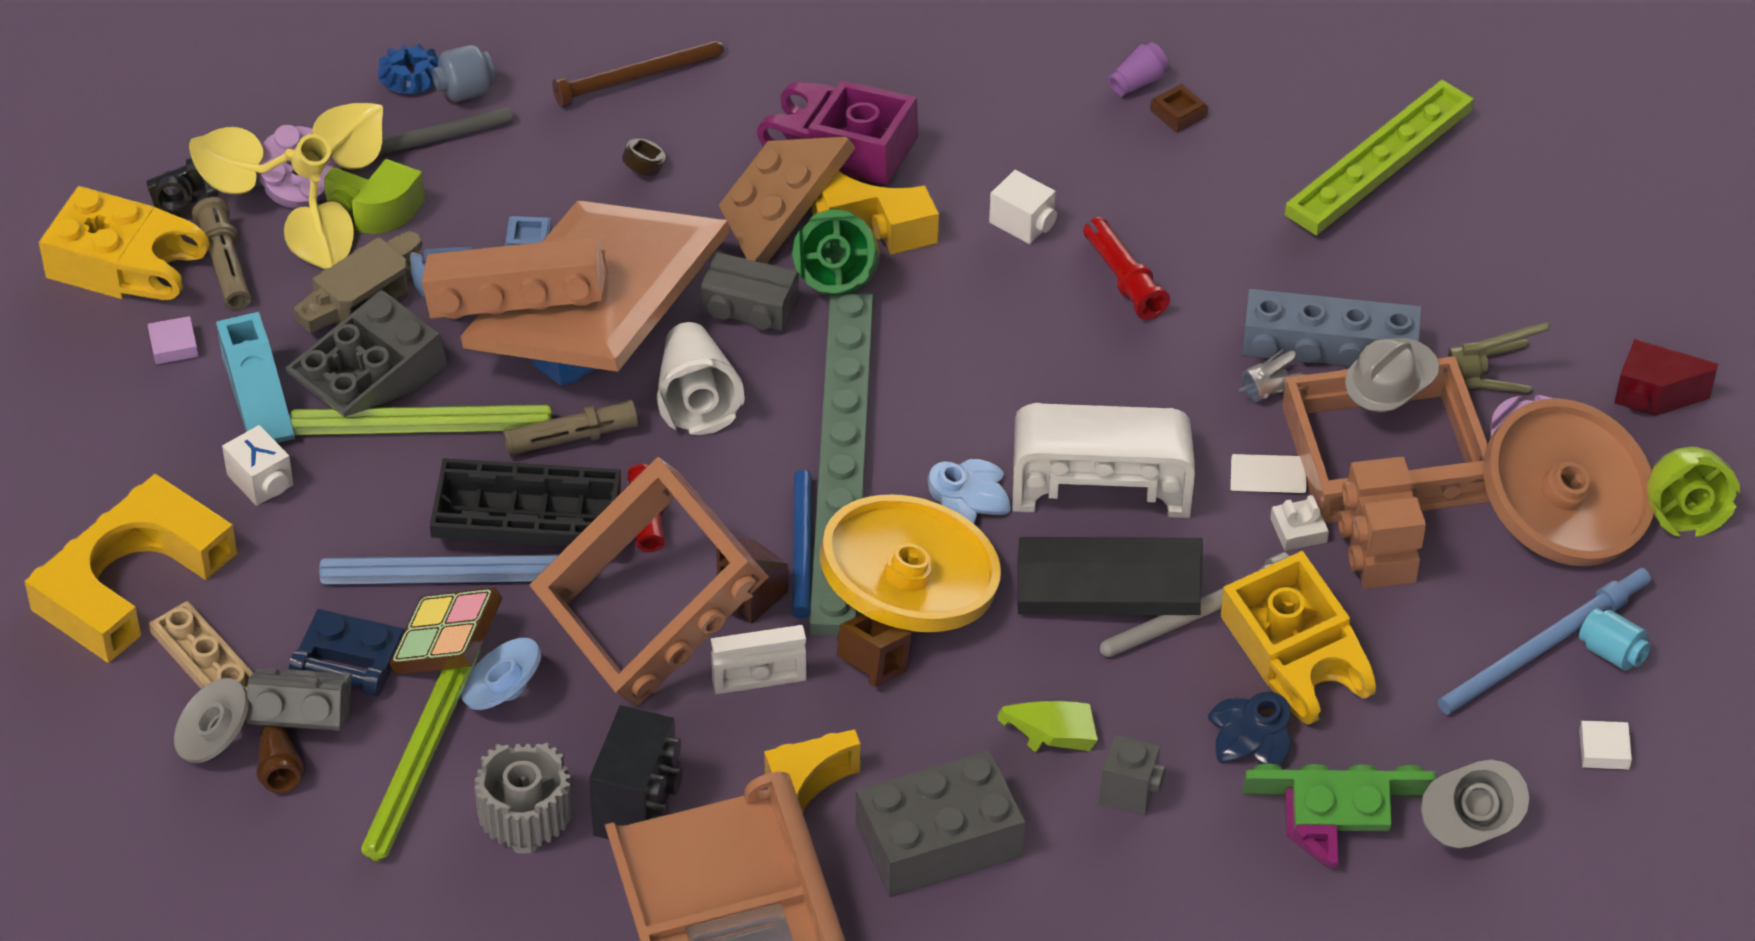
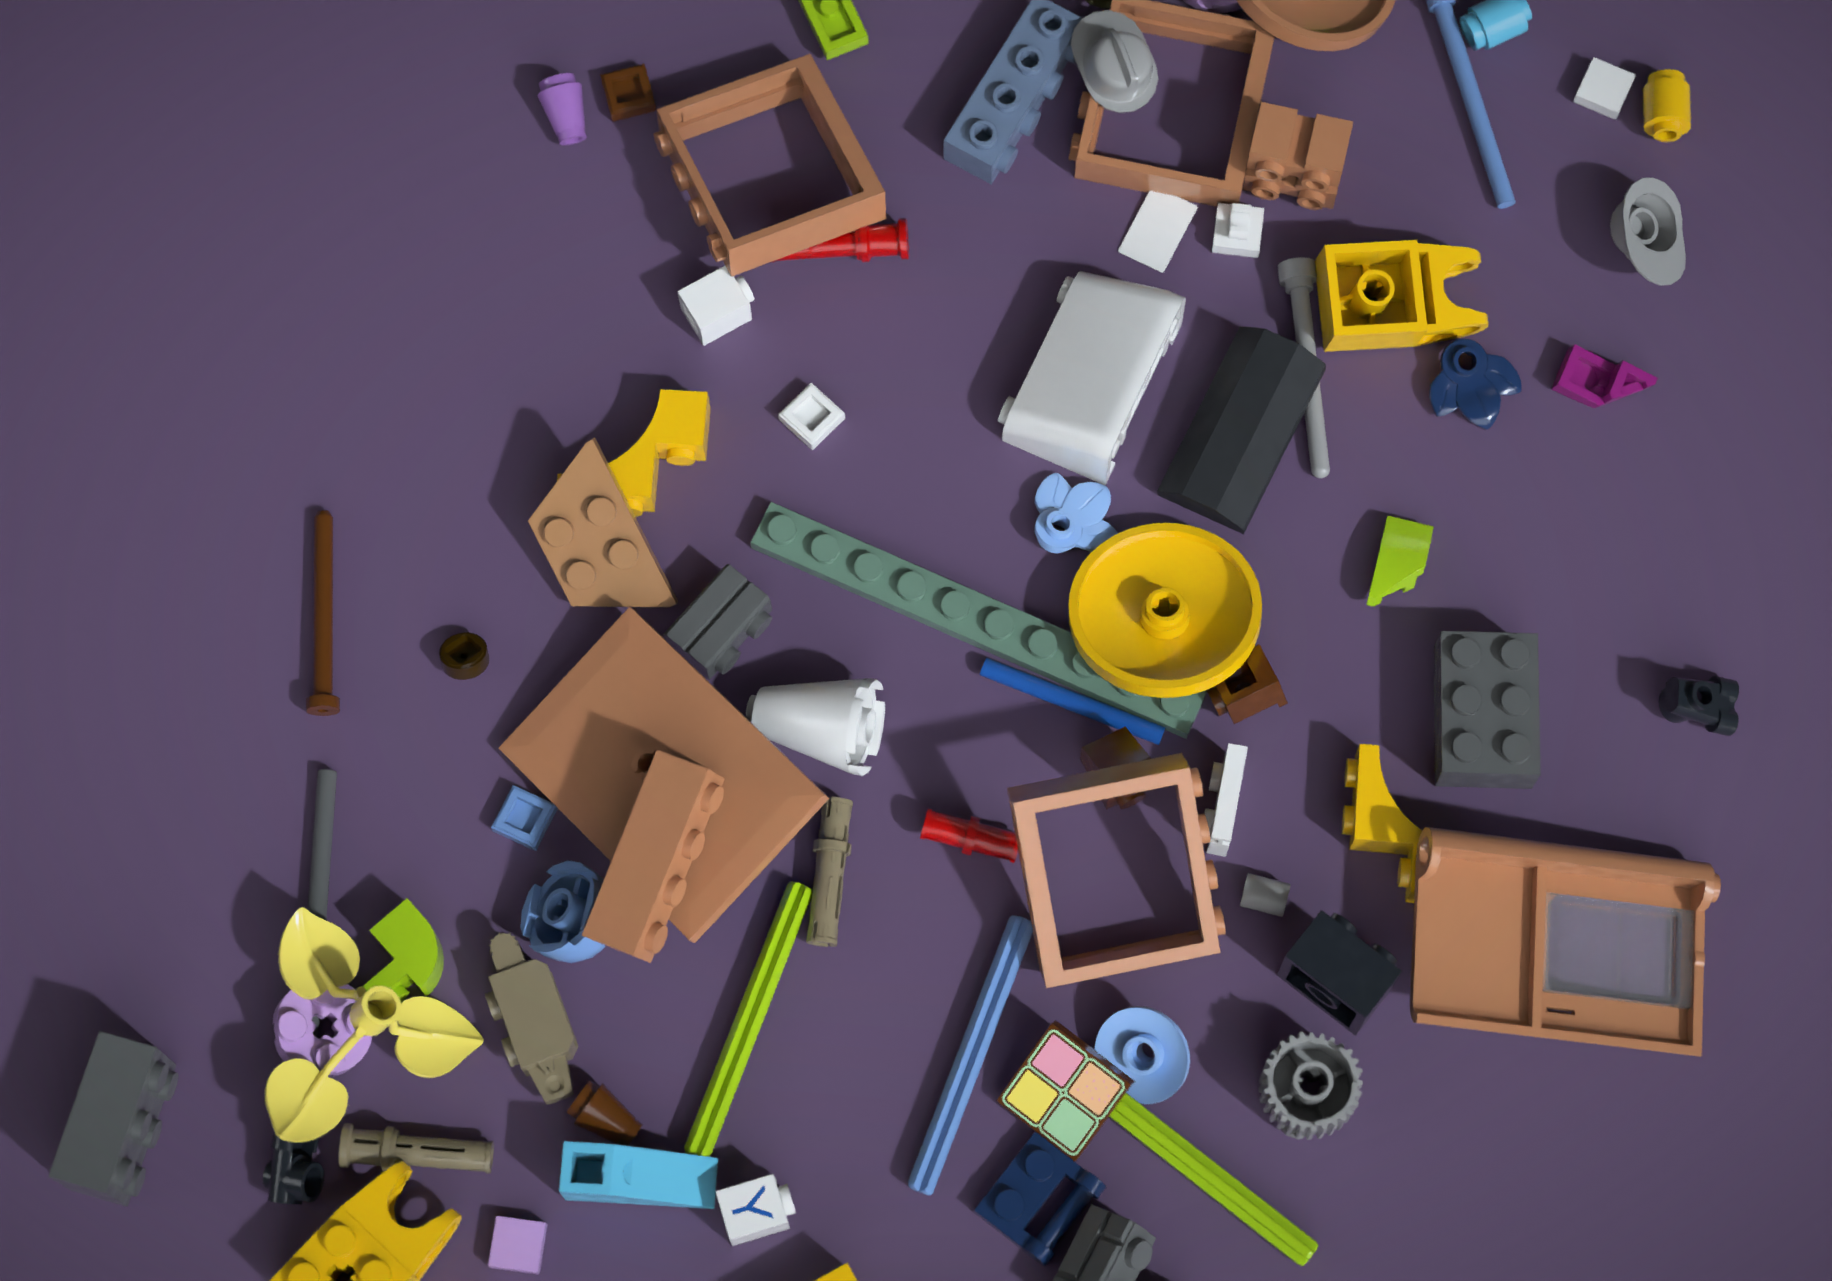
camera: 65 degrees left, 25 degrees up
(171, 67) = (114, 1119): none -> dark grey brick
(297, 341) = (604, 1115): none -> reddish brown cone
(371, 357) = (658, 1049): dark grey slope -> none
(397, 78) = (218, 872): blue gear -> none
(464, 73) = (255, 800): sand blue head -> none
(519, 501) = (931, 954): black piece -> none
(689, 721) = (1265, 895): none -> light grey hinge
(836, 252) = (722, 515): green cylinder -> none
(875, 121) = (517, 444): magenta brick -> none
(964, 302) = (811, 416): none -> white tile
(1131, 774) = (1495, 514): dark grey brick -> none
(1241, 187) = (749, 97): none -> nougat window
(1267, 378) = (1049, 174): flat silver piece -> none
(1346, 798) = (1589, 341): bright green bracket -> none
(1615, 790) = (1666, 105): none -> yellow brick

